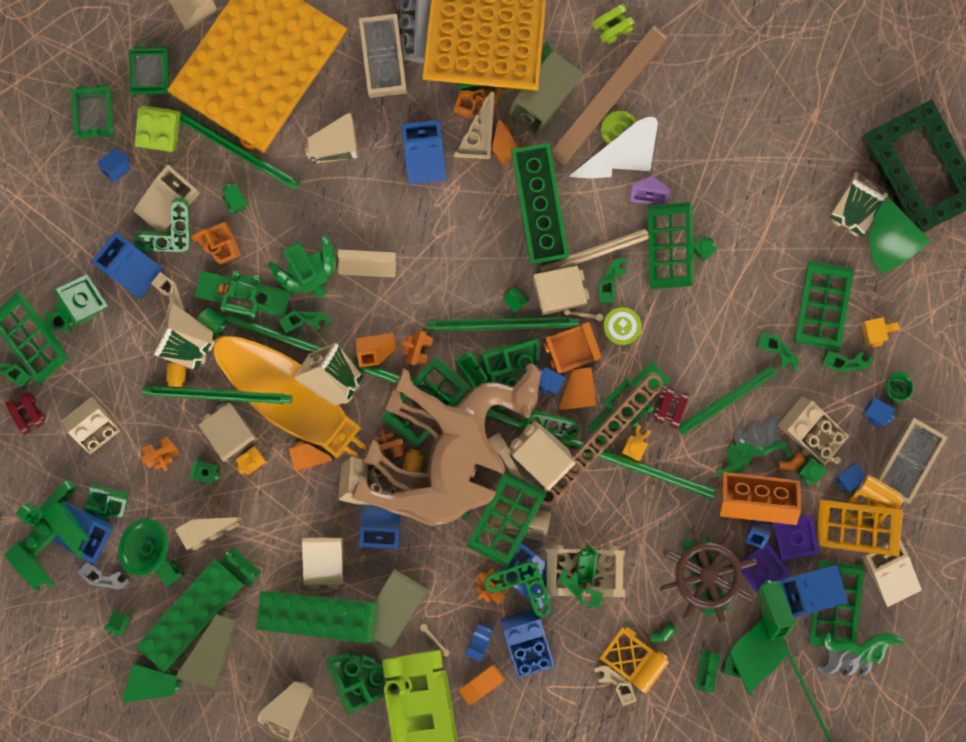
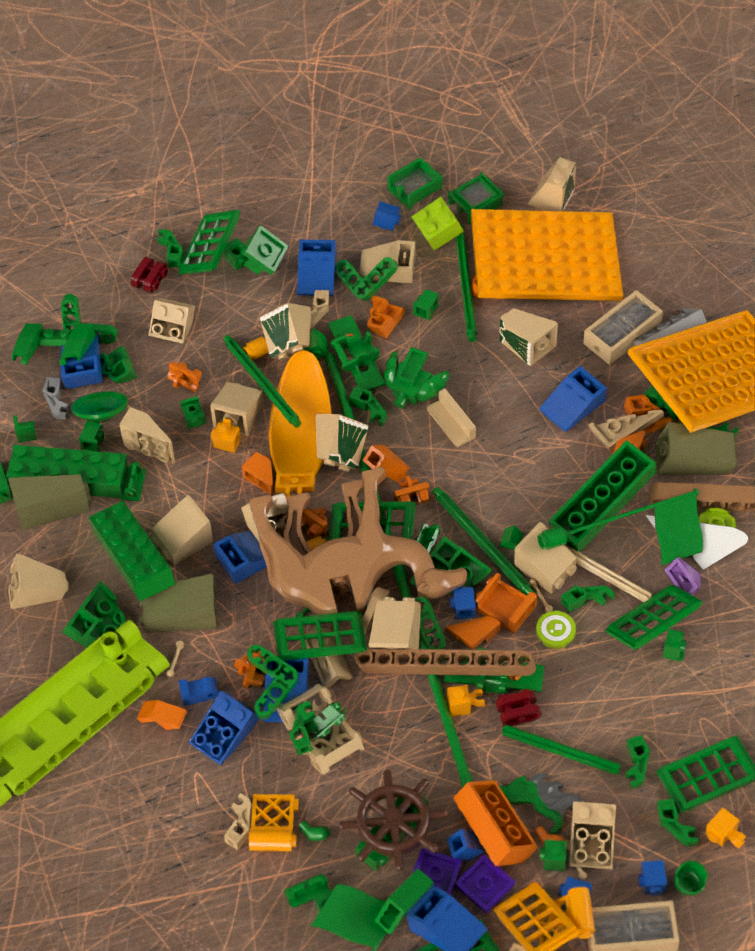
camera: 60 degrees right, 30 degrees down
(605, 166) = (675, 526): none -> green flag

